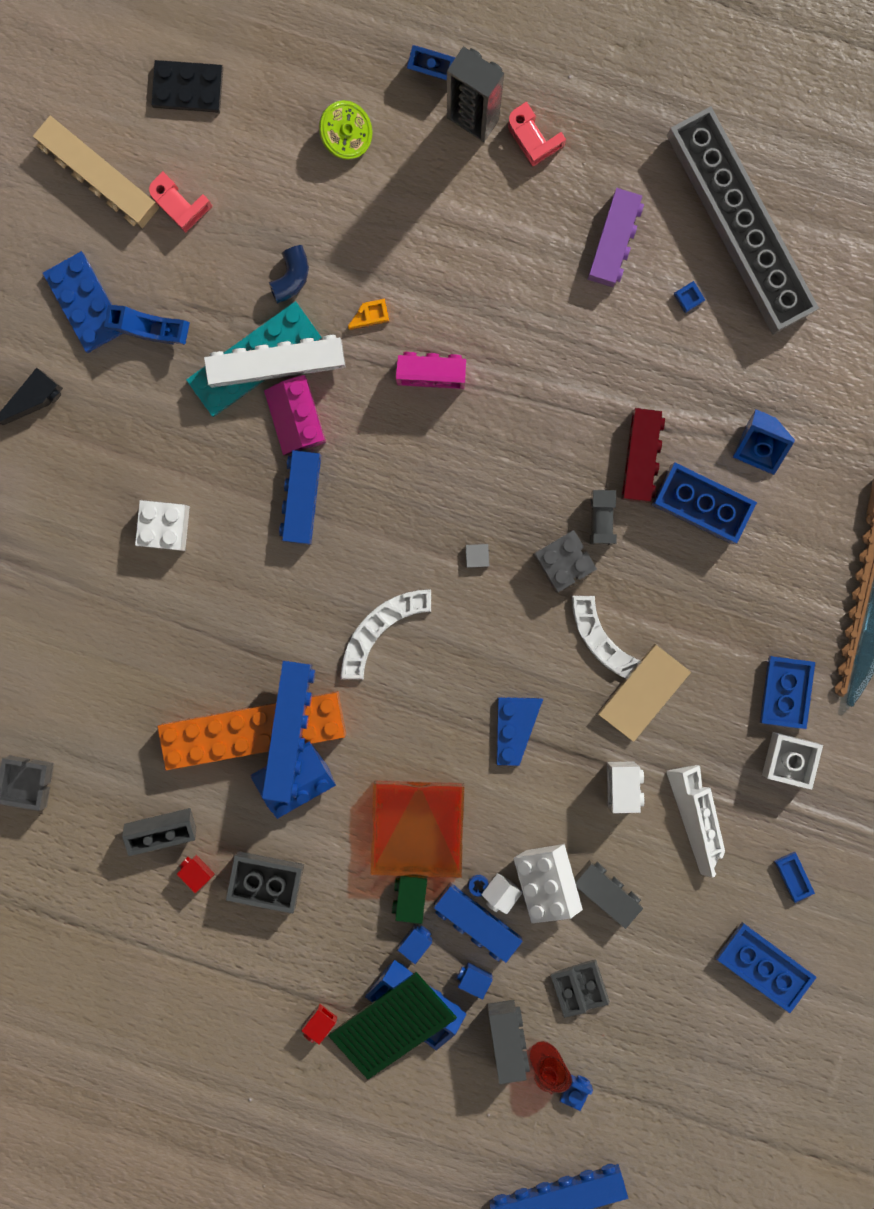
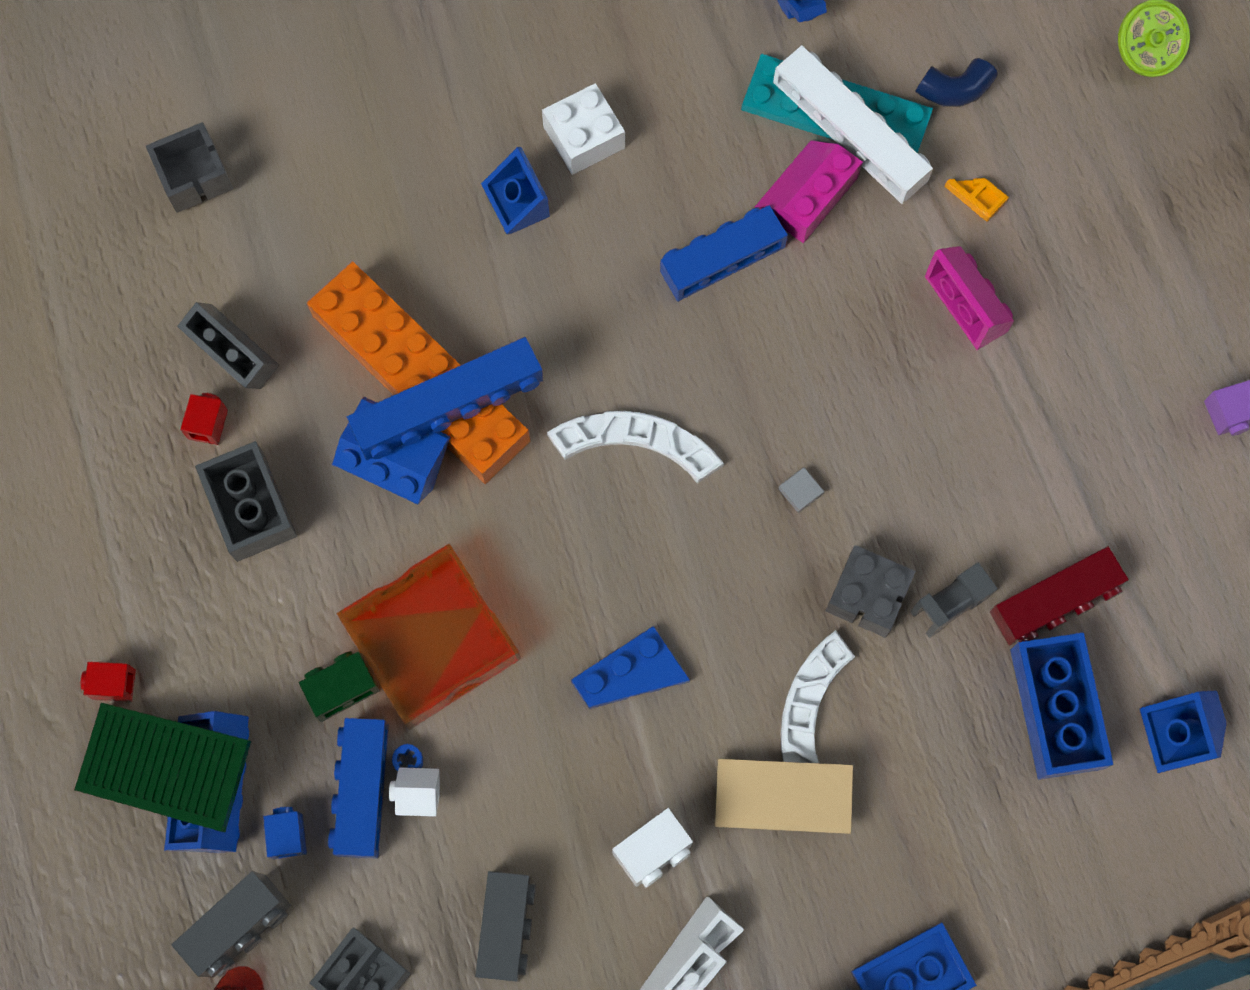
camera: 55 degrees right, 15 degrees down
(176, 596) = (516, 193): none -> blue slope
(415, 943) = (285, 729): blue brick -> none
(548, 884) = (467, 837): white brick -> none

